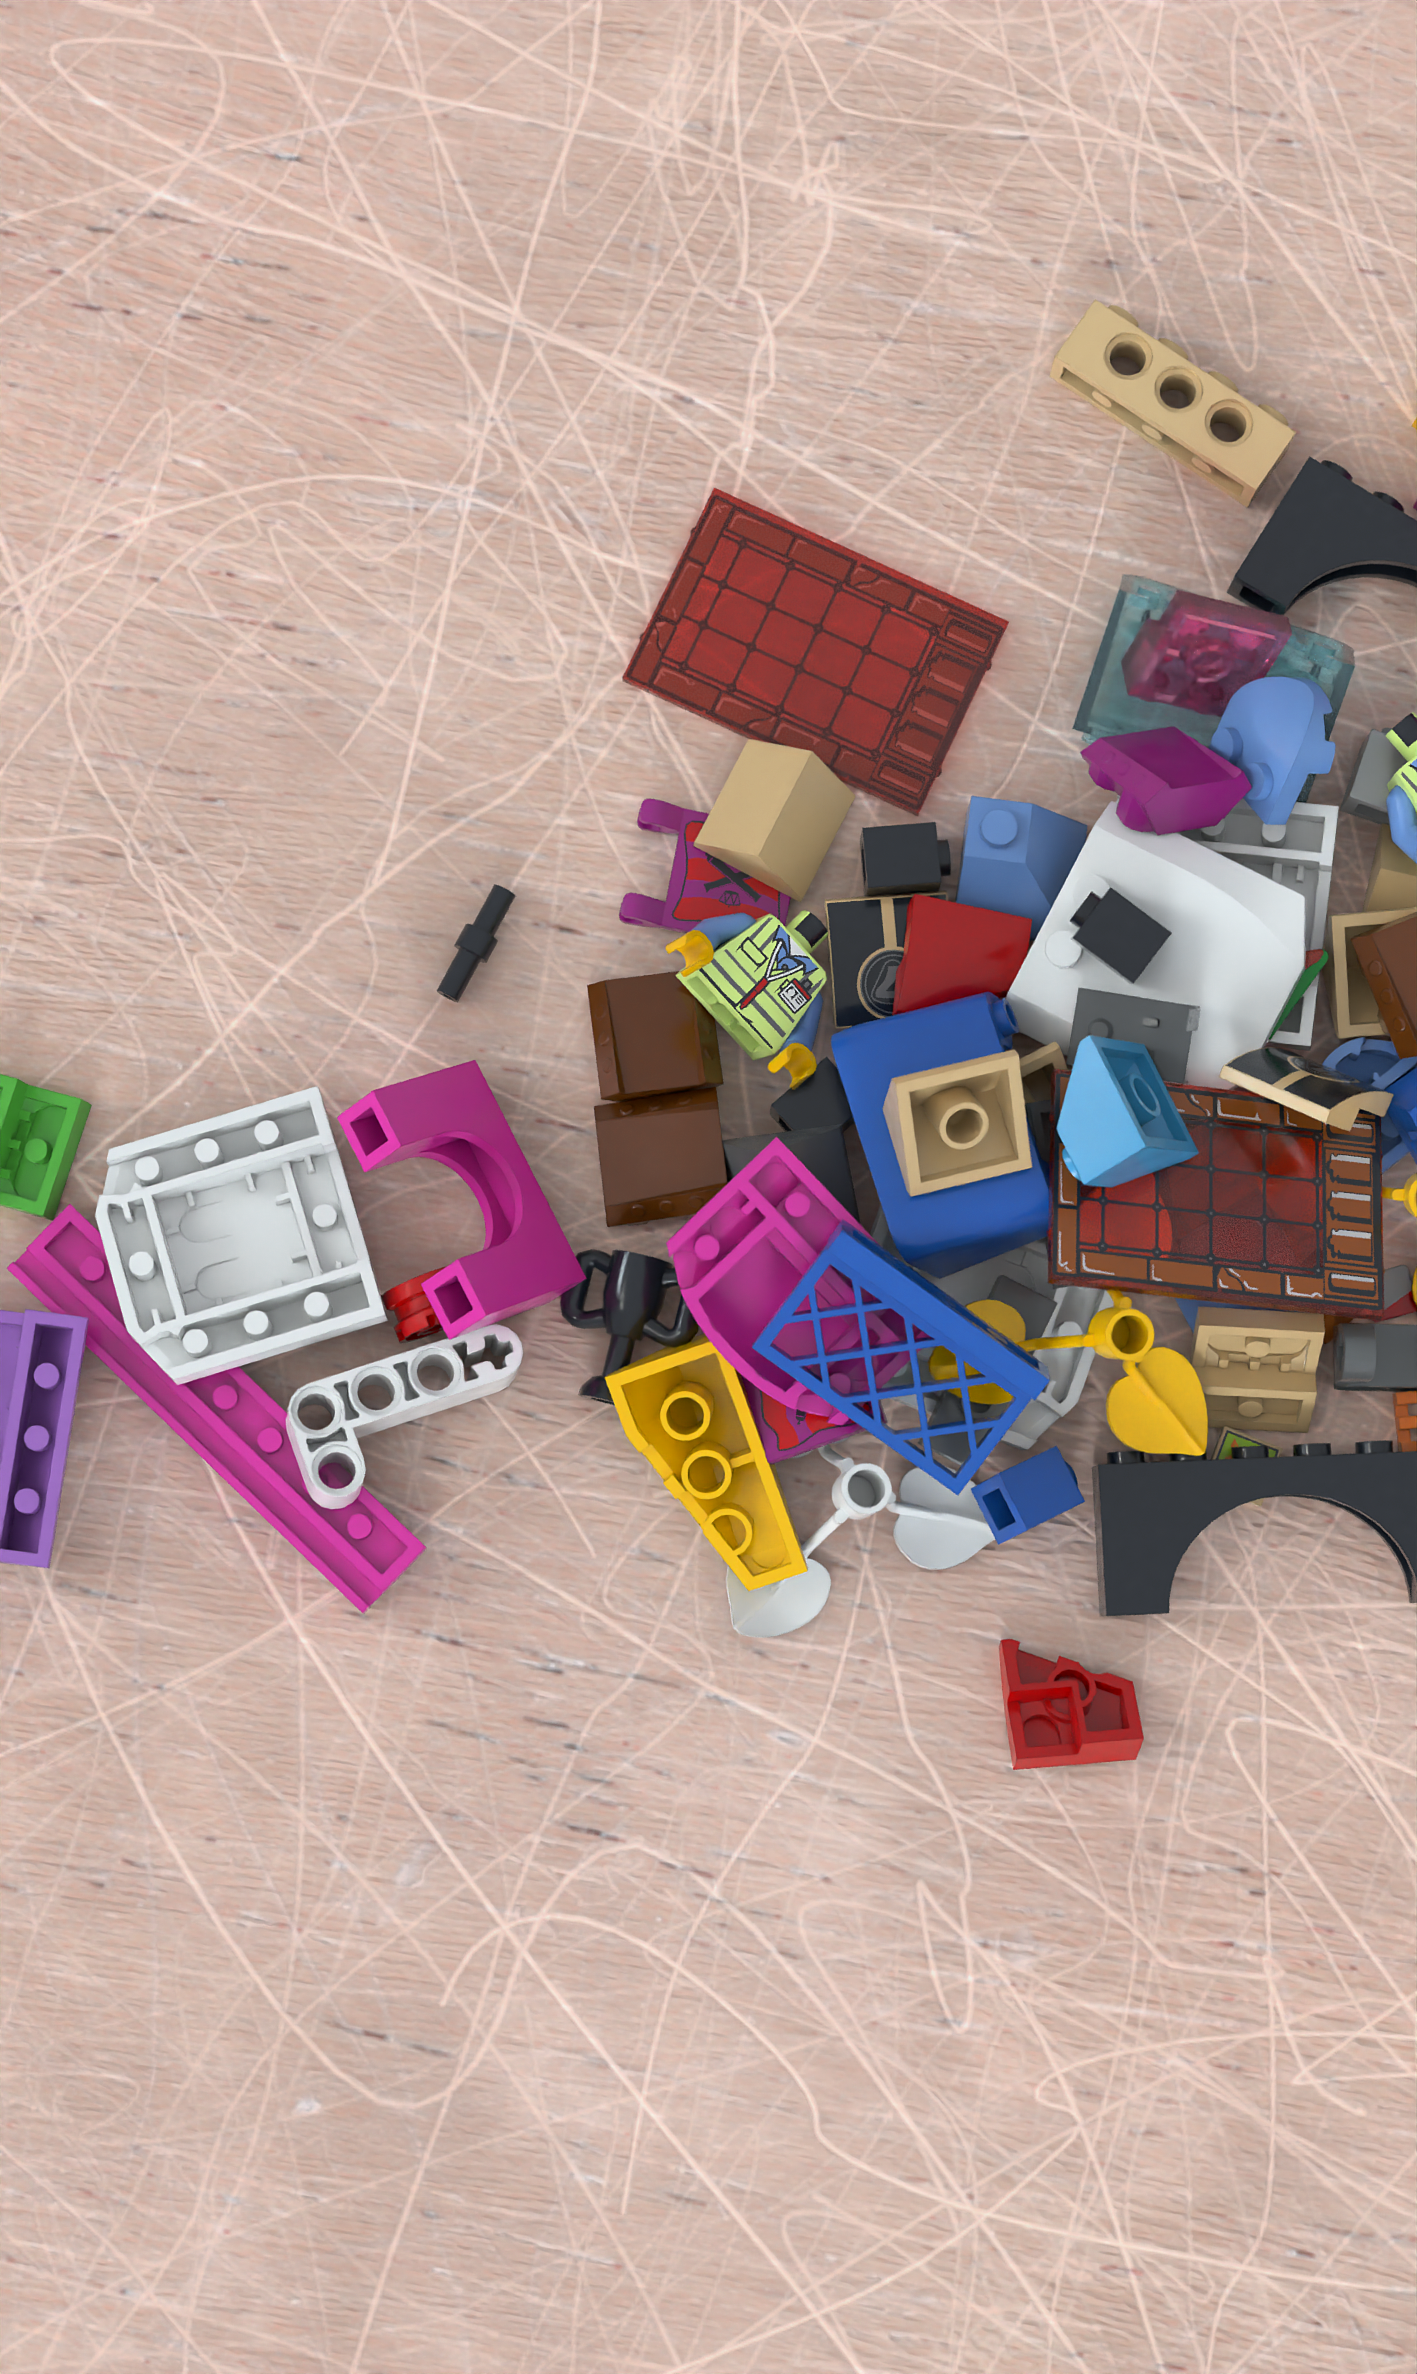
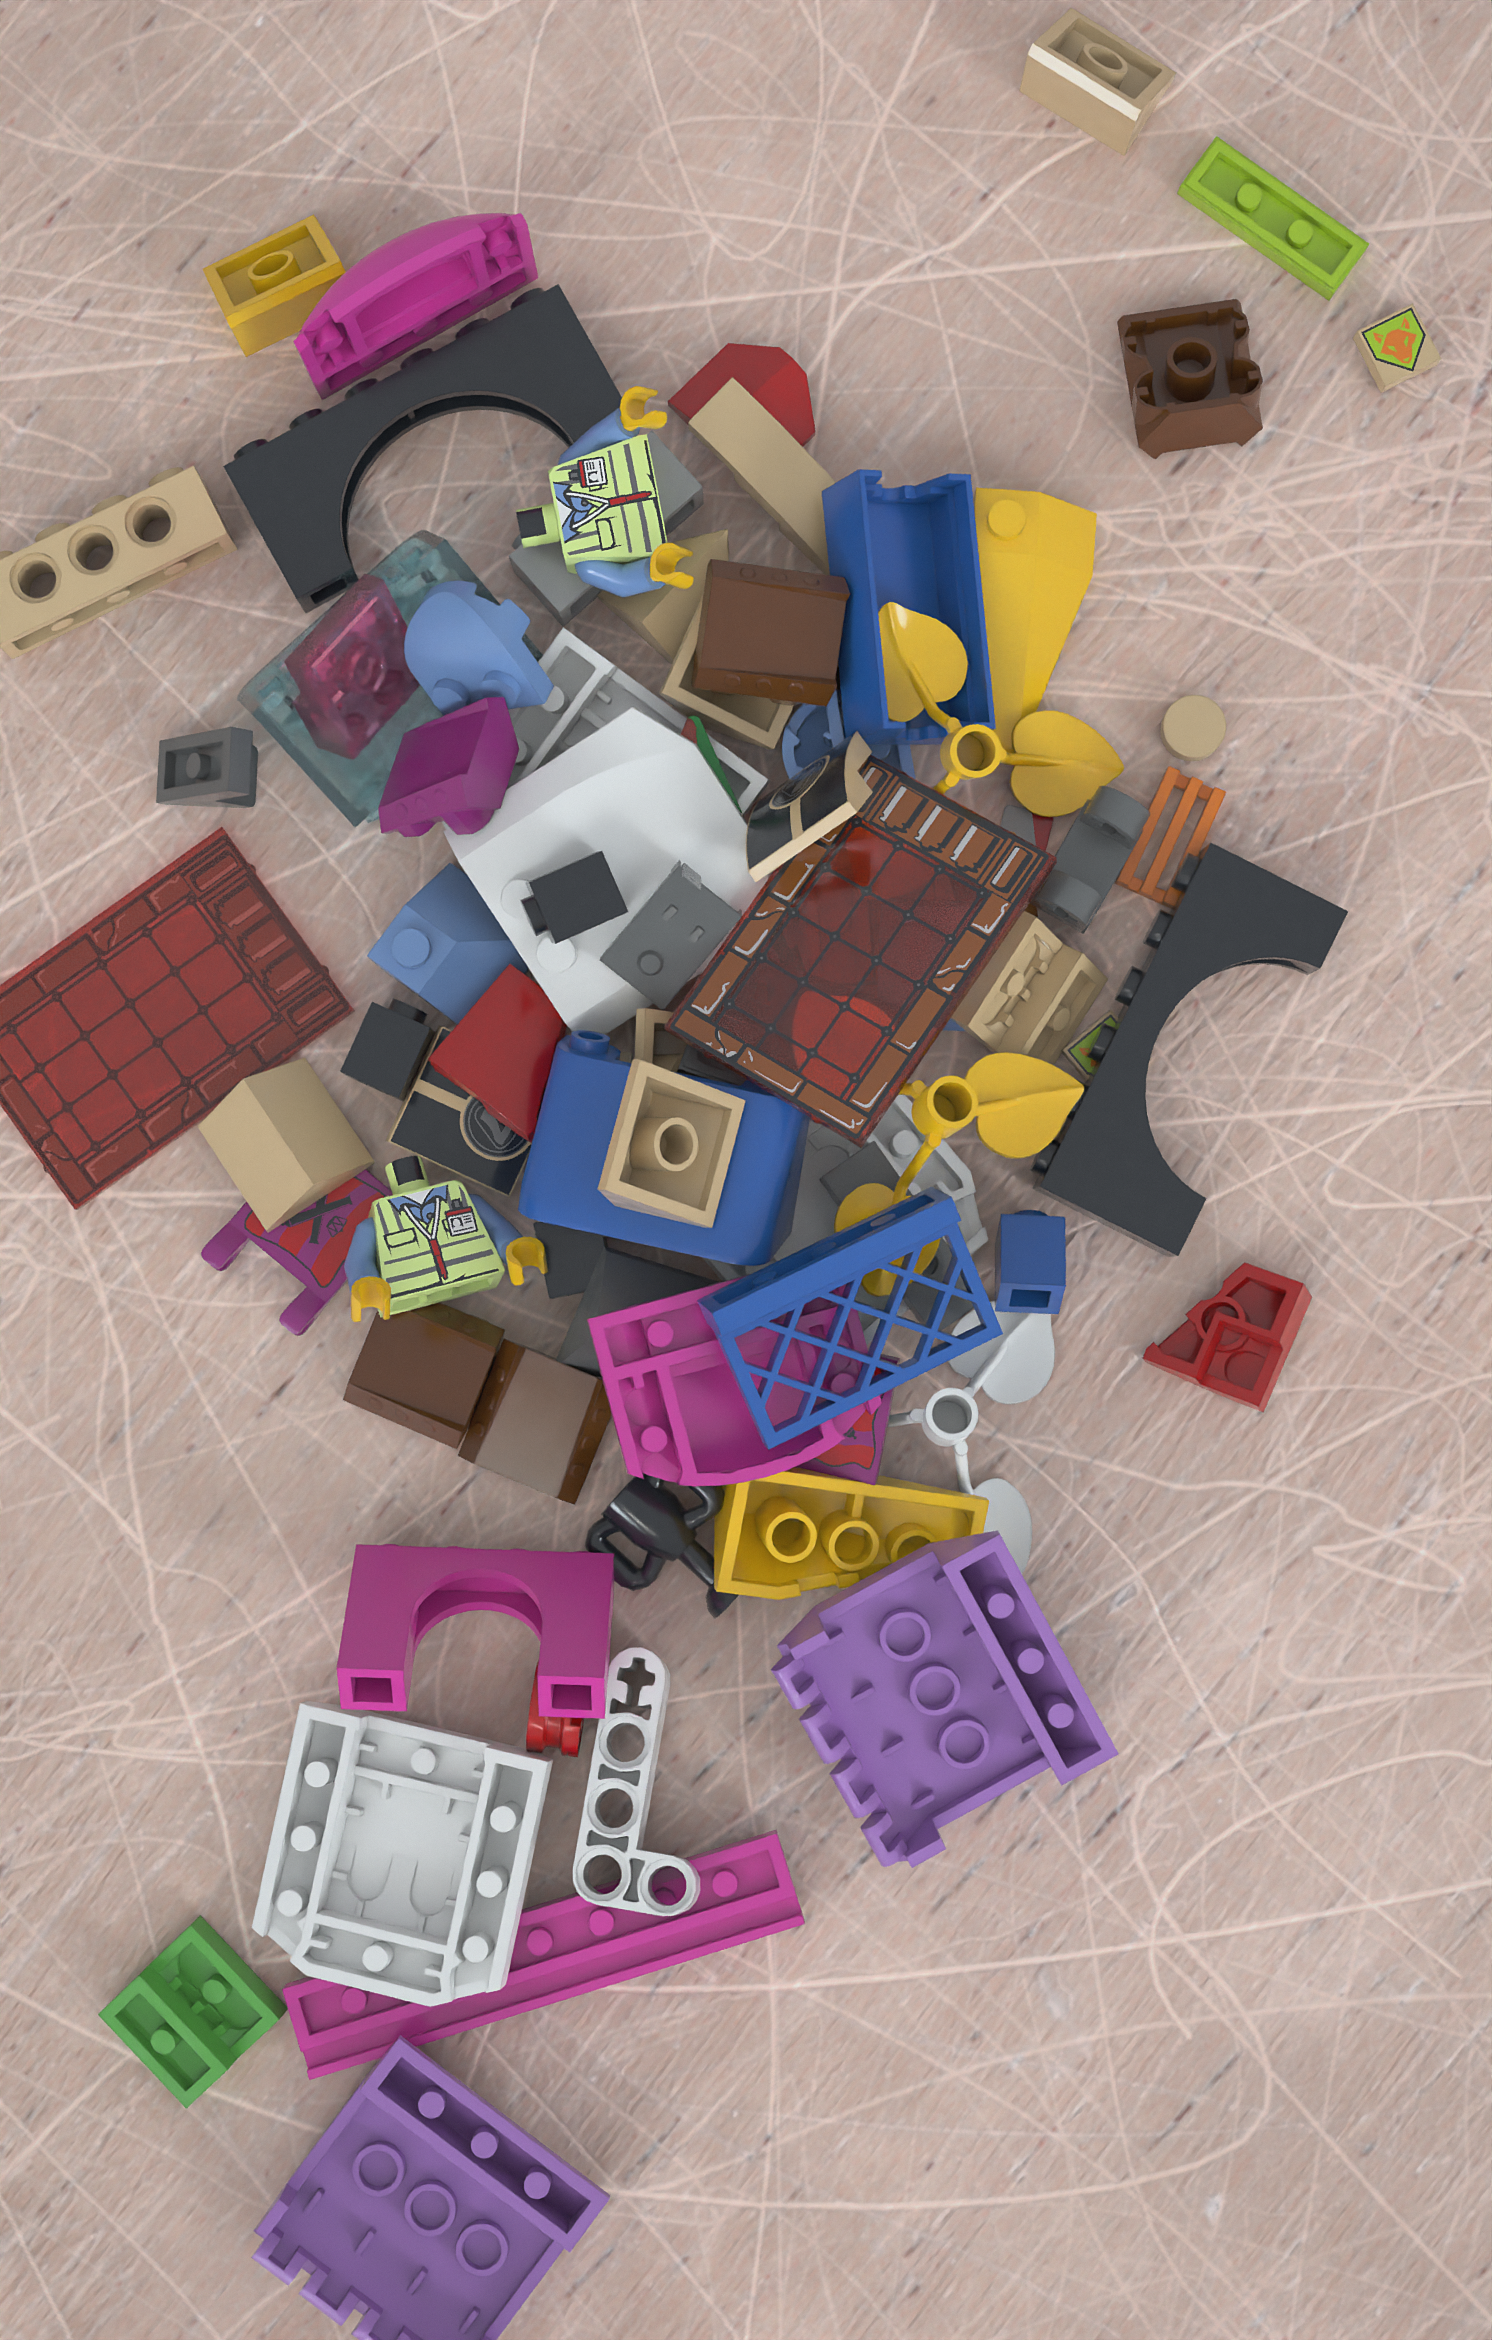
camera: 55 degrees left, 5 degrees up
(476, 943) = (247, 1480): black bar -> none
(621, 1613) = (937, 1692): none -> medium lavender slope
(1050, 584) = (208, 769): none -> dark grey slope
(1119, 1116) = (743, 994): dark azure slope -> none

